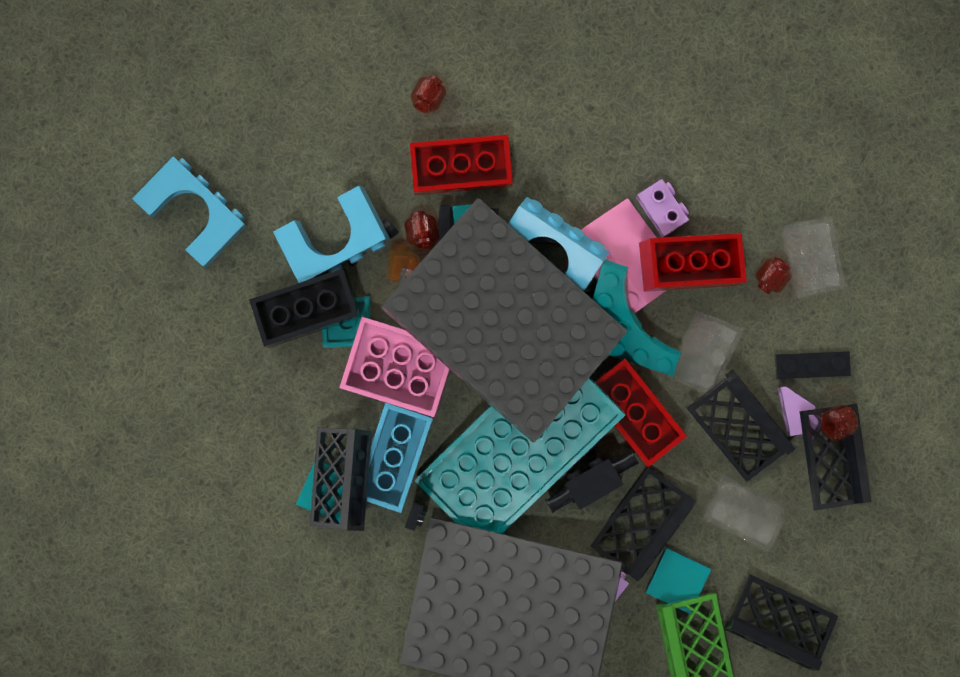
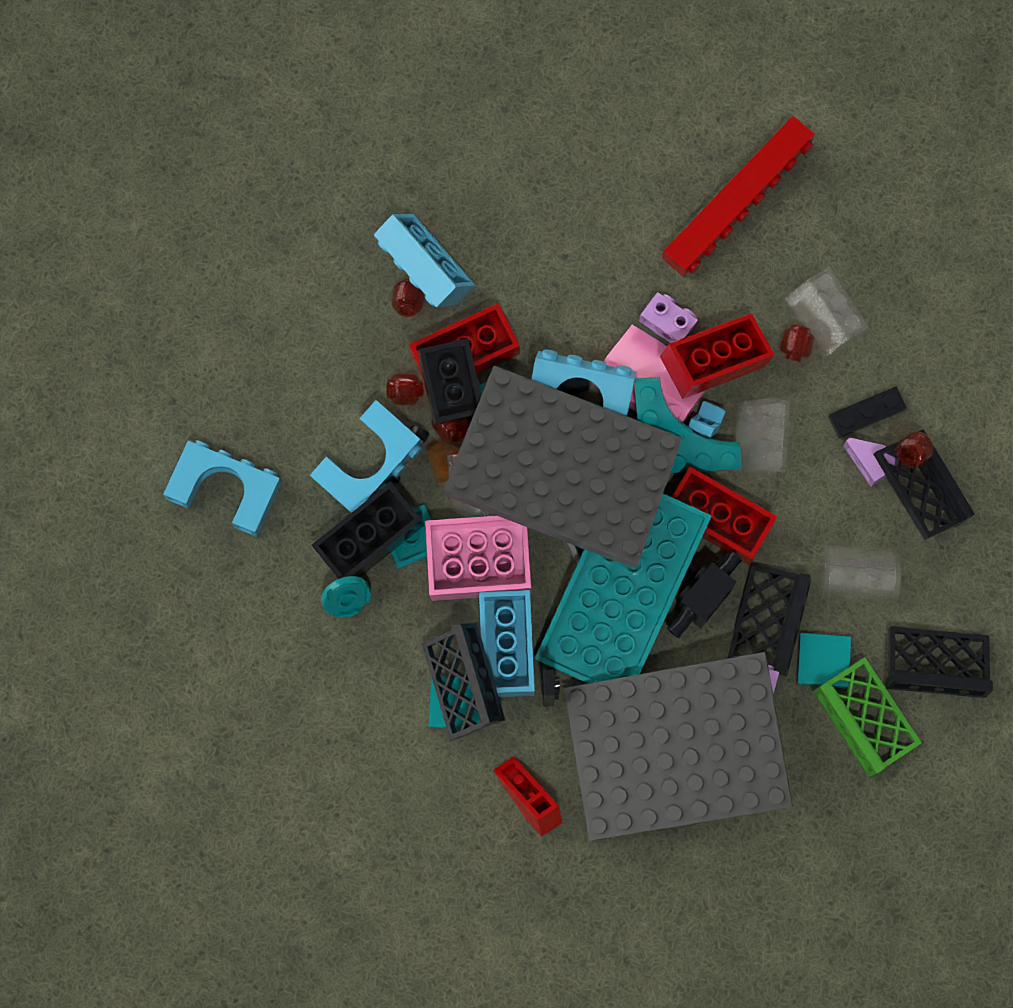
camera: 20 degrees left, 10 degrees down
(264, 358) = (346, 596): none -> teal tile
(361, 602) = (529, 796): none -> red slope
(391, 181) = (404, 389): none -> clear red head
(433, 196) = (450, 381): none -> black brick
(455, 65) = (424, 260): none -> medium azure brick
(660, 318) = (708, 420): none -> medium azure bracket
(753, 409) = (836, 472): black fence -> none
(777, 112) = (738, 196): none -> red brick

